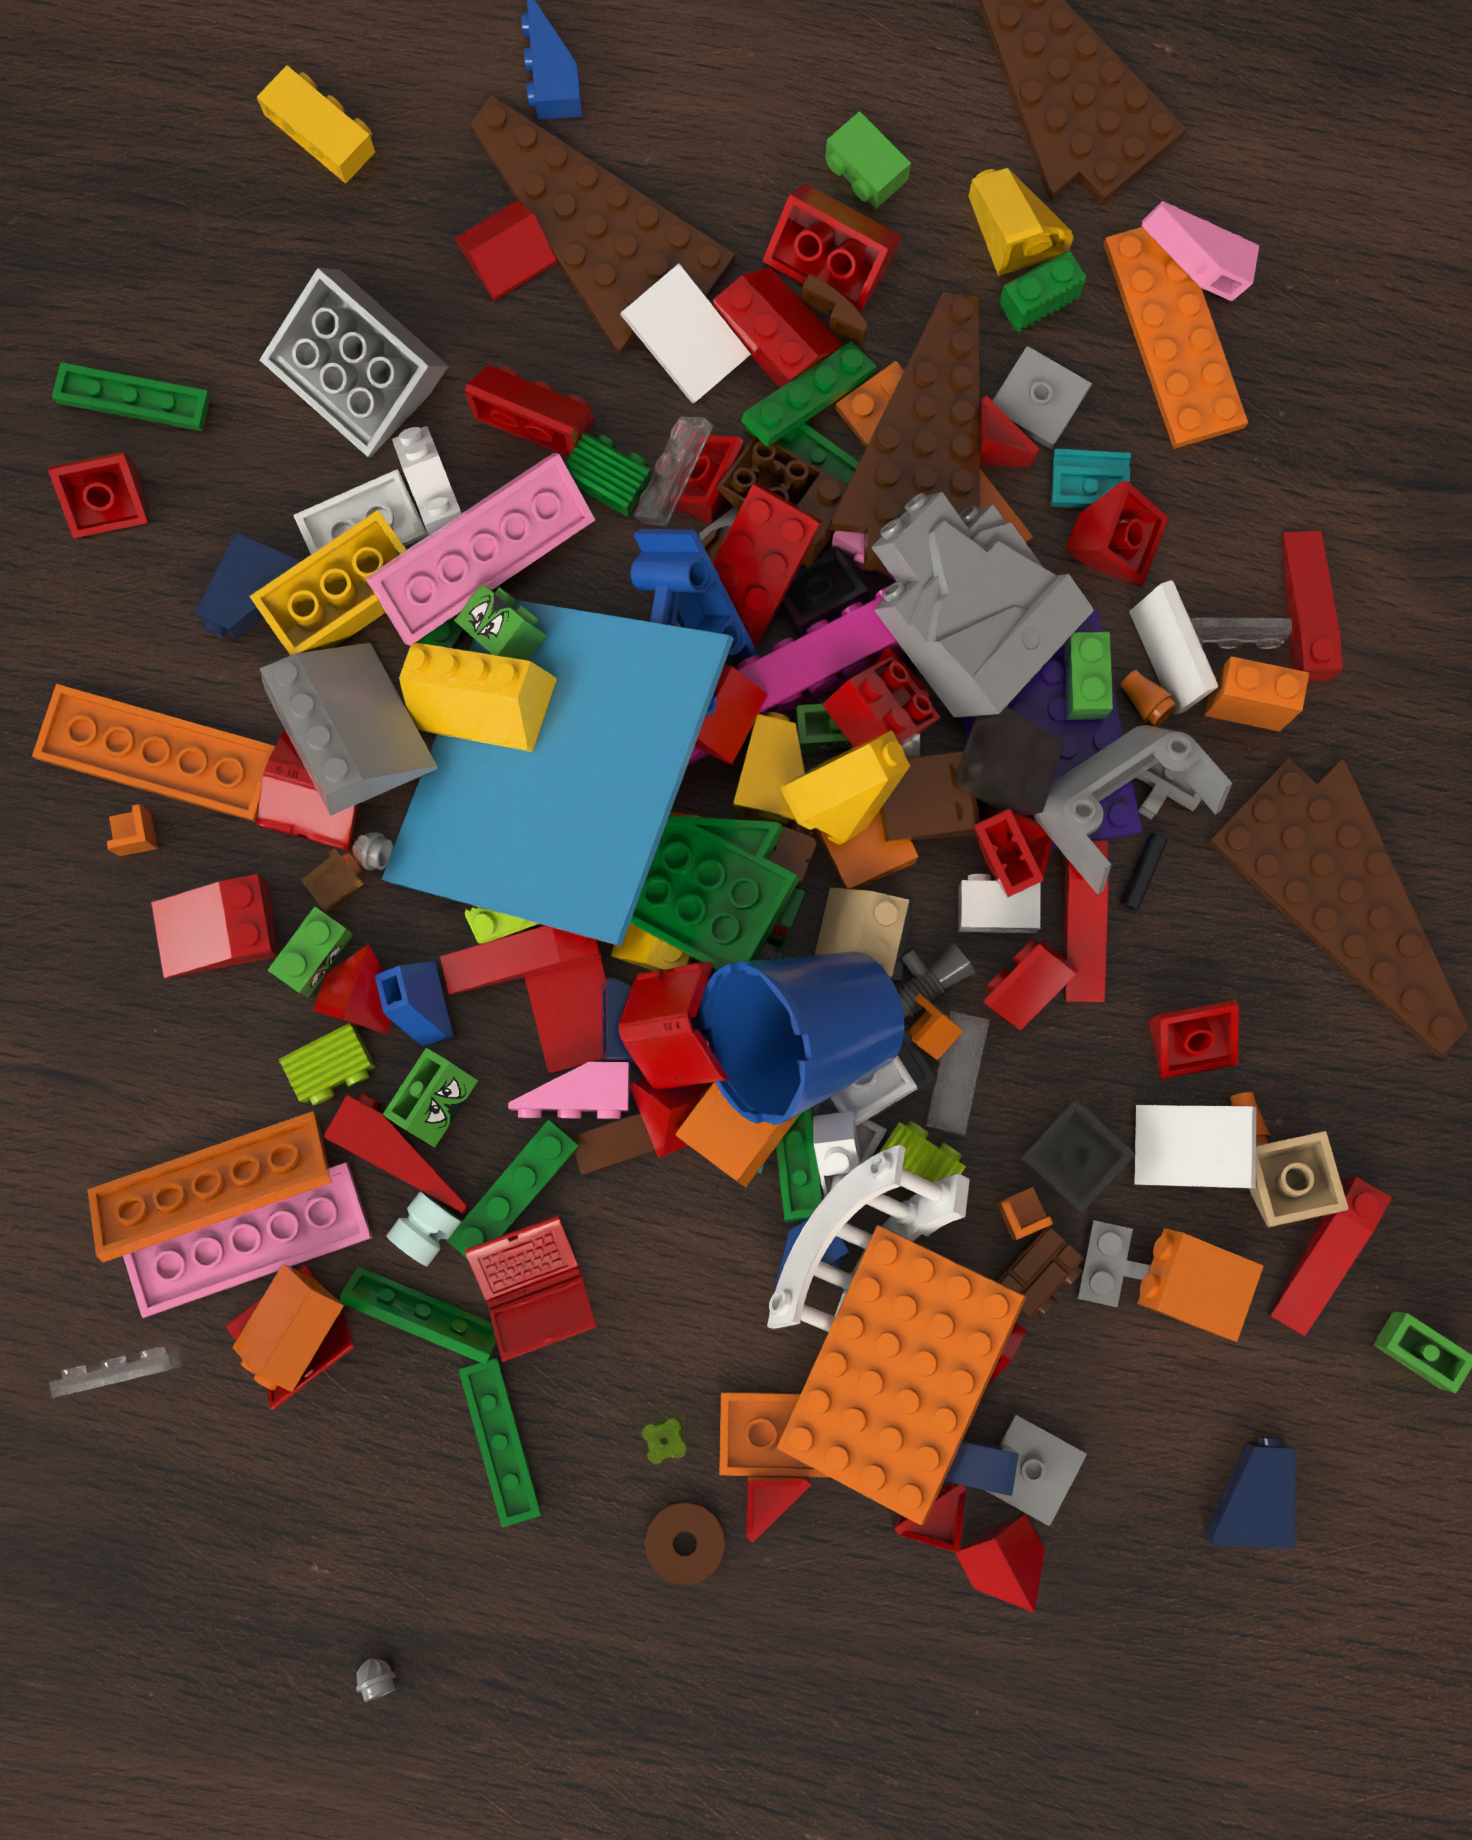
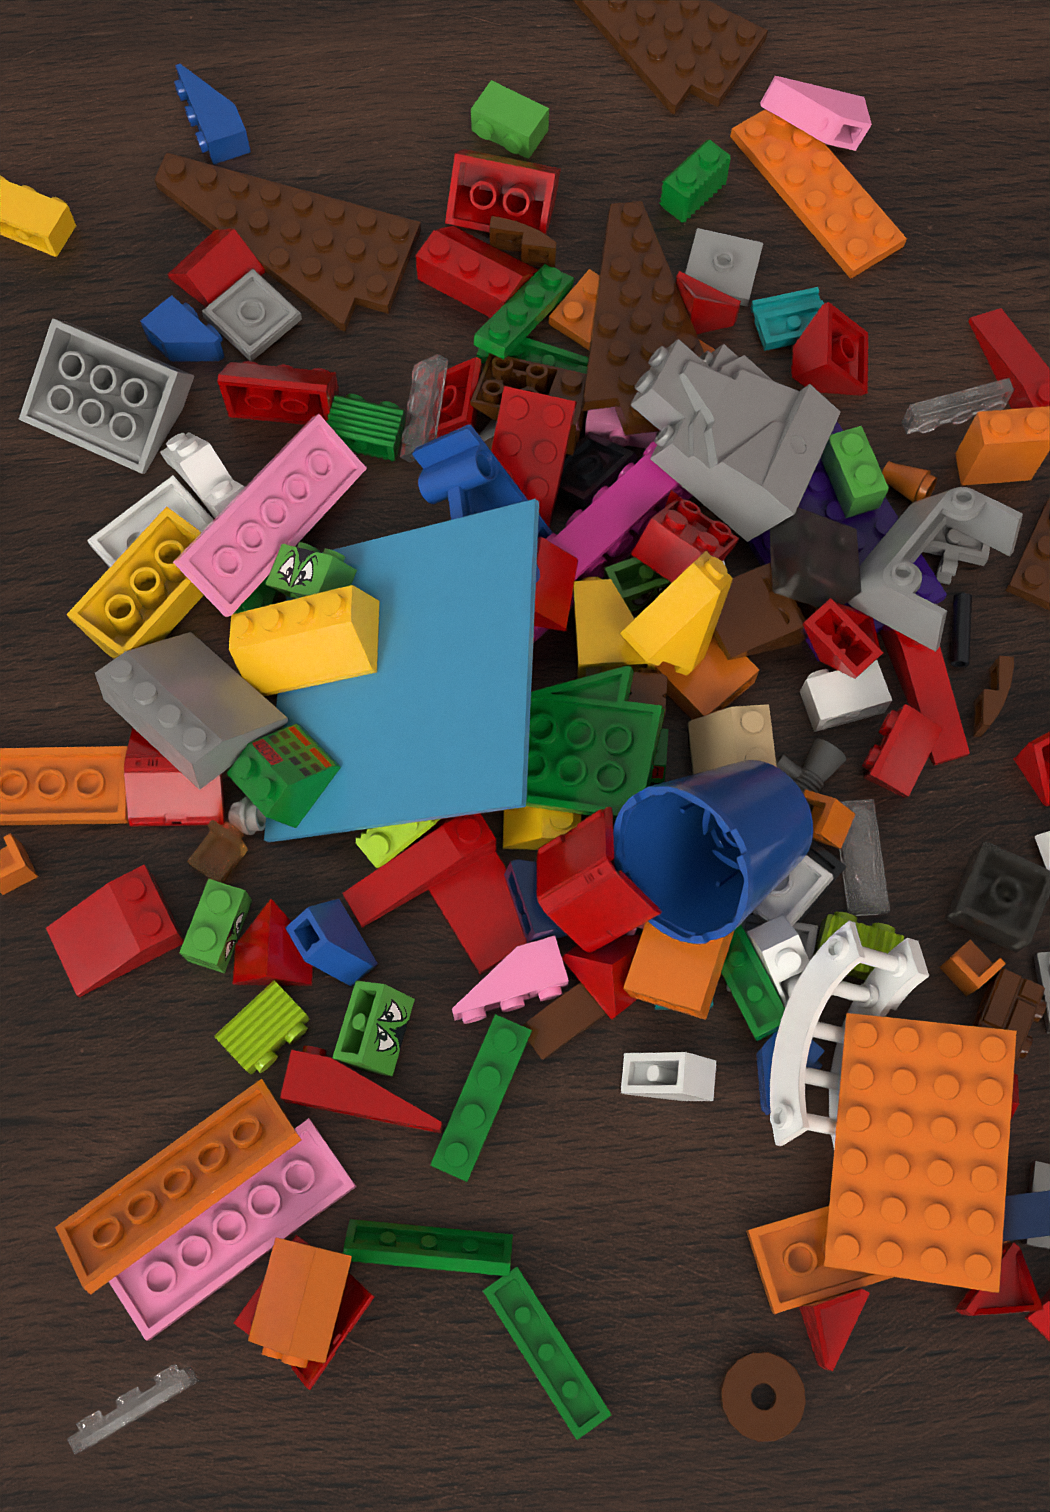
camera: 20 degrees left, 10 degrees down
(240, 573) = (47, 631): dark blue slope -> none
(416, 823) = (284, 774): none -> green slope
(423, 1228) = (405, 1158): light aqua wheel -> none
(446, 313) = (180, 333): none -> blue slope
(527, 312) = (251, 315): none -> light grey plate
(532, 1287) = (529, 1184): red piece -> none
(669, 1430) = (719, 1302): clear neon green plate -> none
(685, 333) = (398, 293): white tile -> none
(695, 1228) = (669, 1076): none -> white slope
(1015, 222) = (652, 134): yellow slope -> none
(1142, 958) = (991, 700): none -> reddish brown slope
(1173, 646) = (917, 428): white tile -> none

